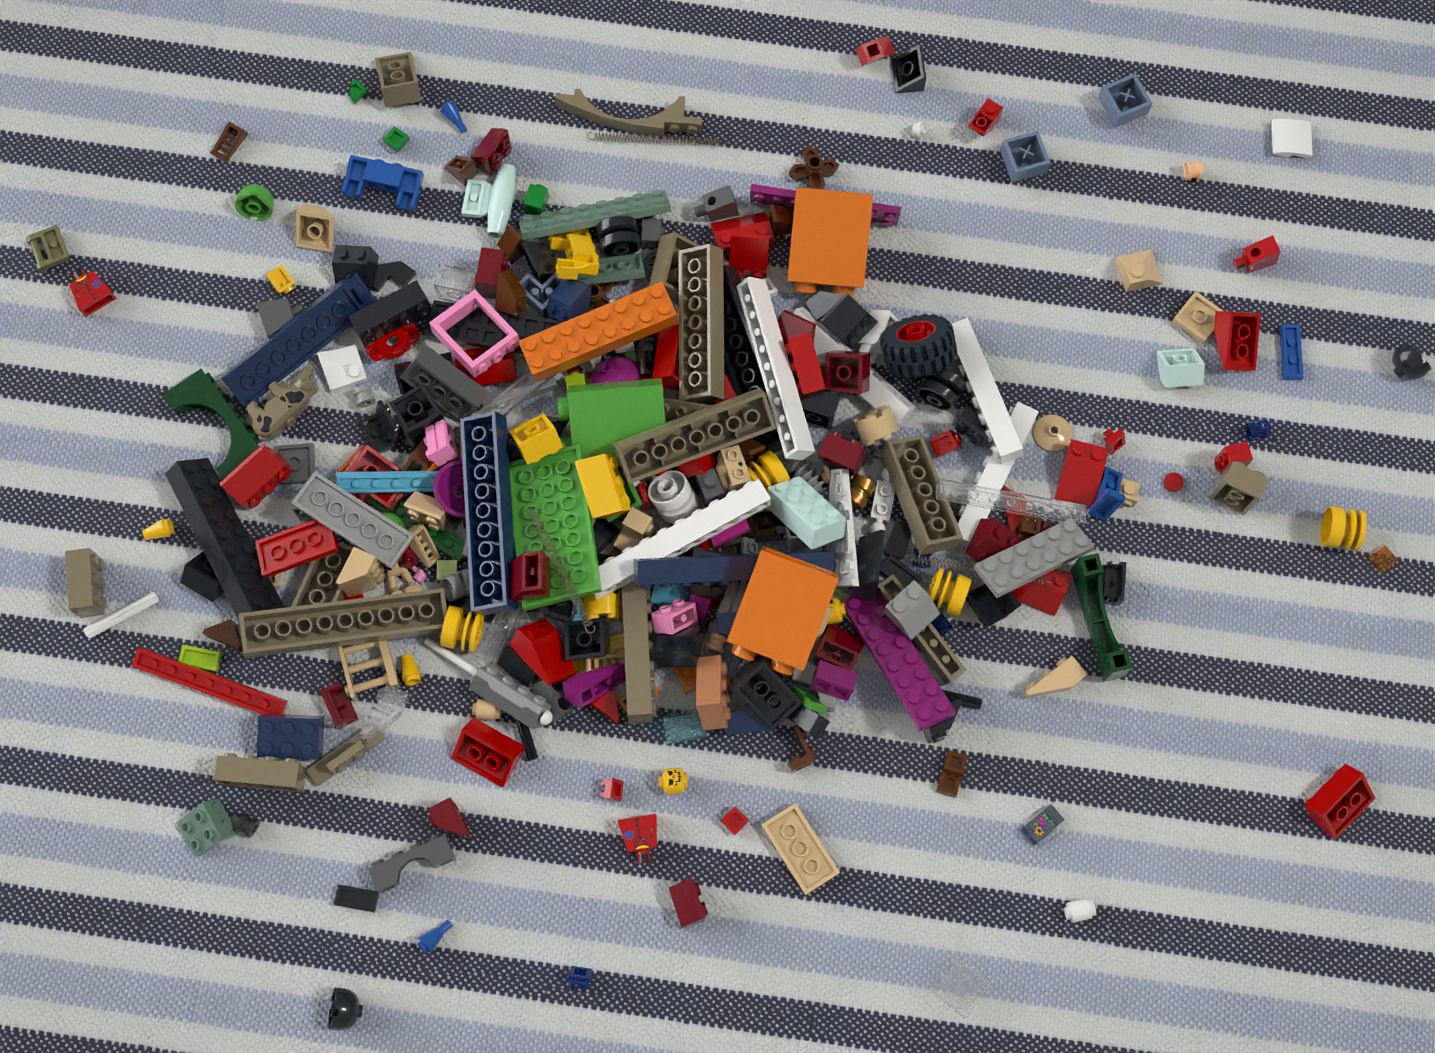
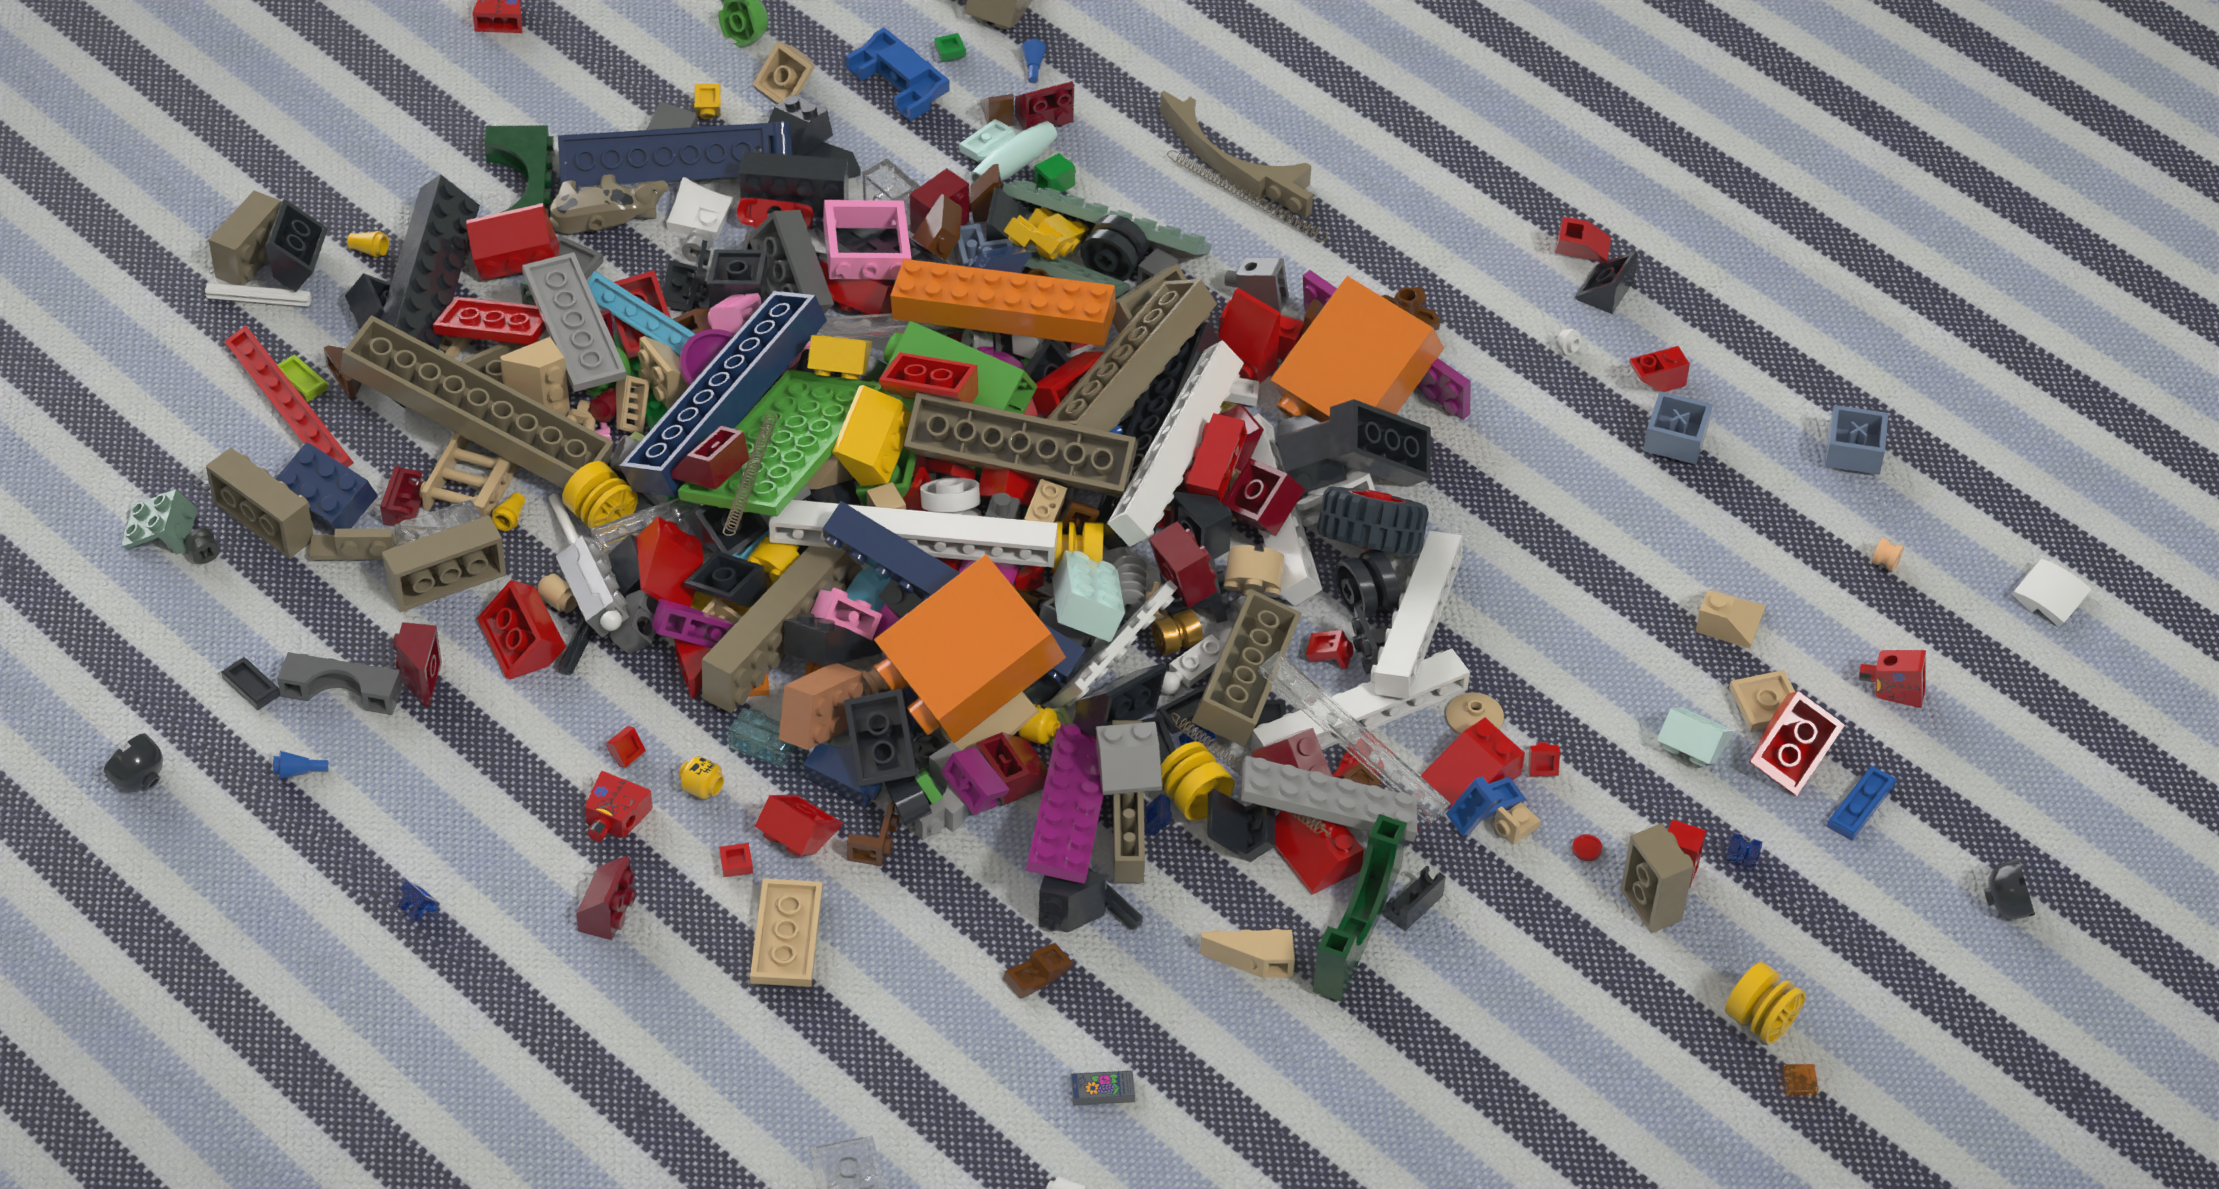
camera: 35 degrees right, 25 degrees down
(123, 570) = (294, 245): none -> black slope
(407, 740) = (444, 563): none -> dark tan brick
(614, 429) = (930, 376): none -> red slope
(750, 772) = (796, 824): none -> red slope
(884, 288) = (1380, 443): none -> black brick

